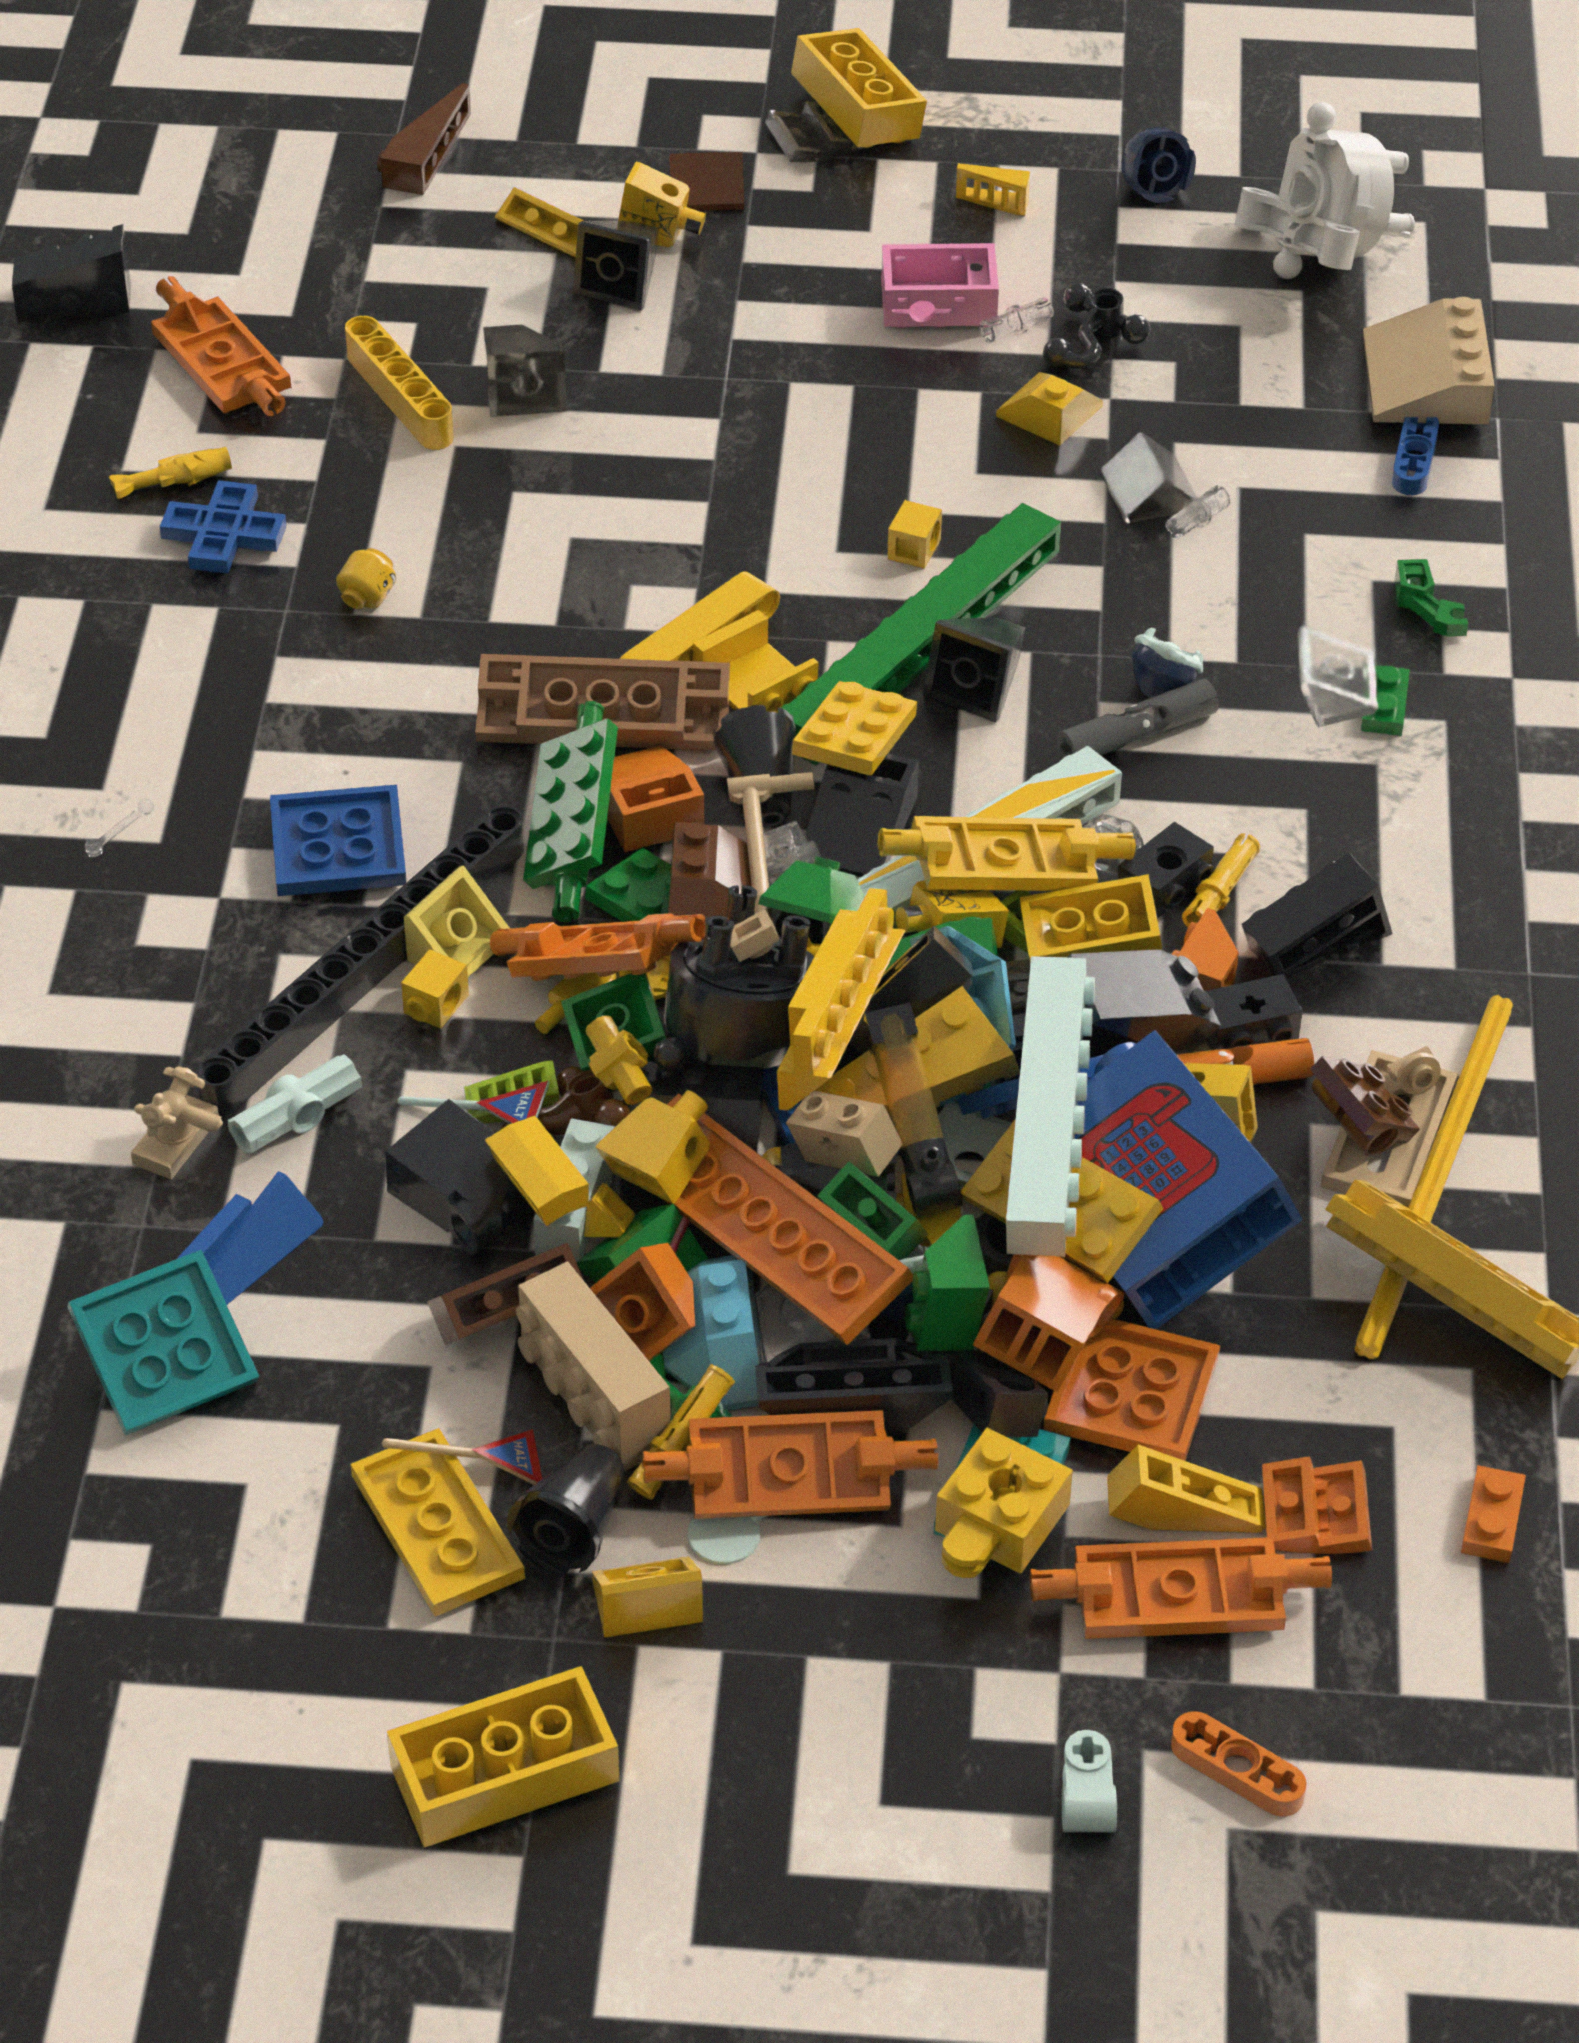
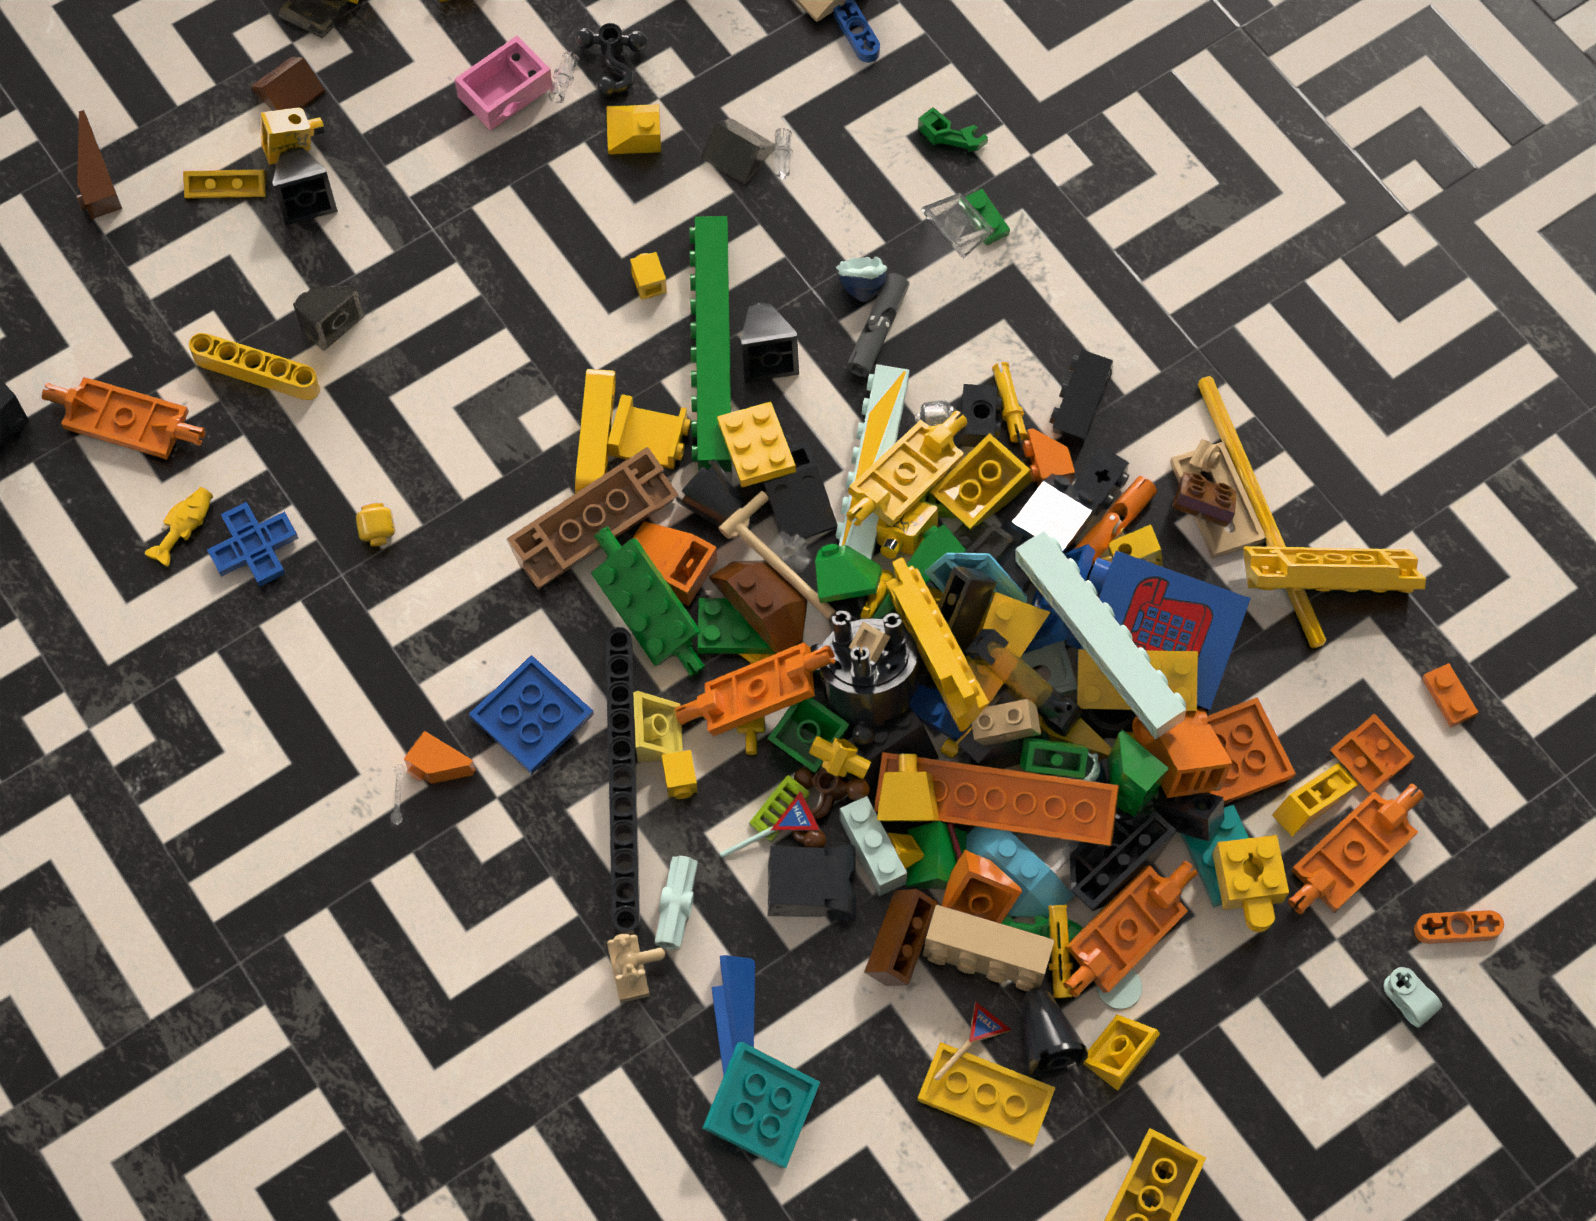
camera: 40 degrees left, 20 degrees up
(187, 816) = (436, 761): none -> orange slope
(539, 1169) = (864, 856): yellow piece -> none

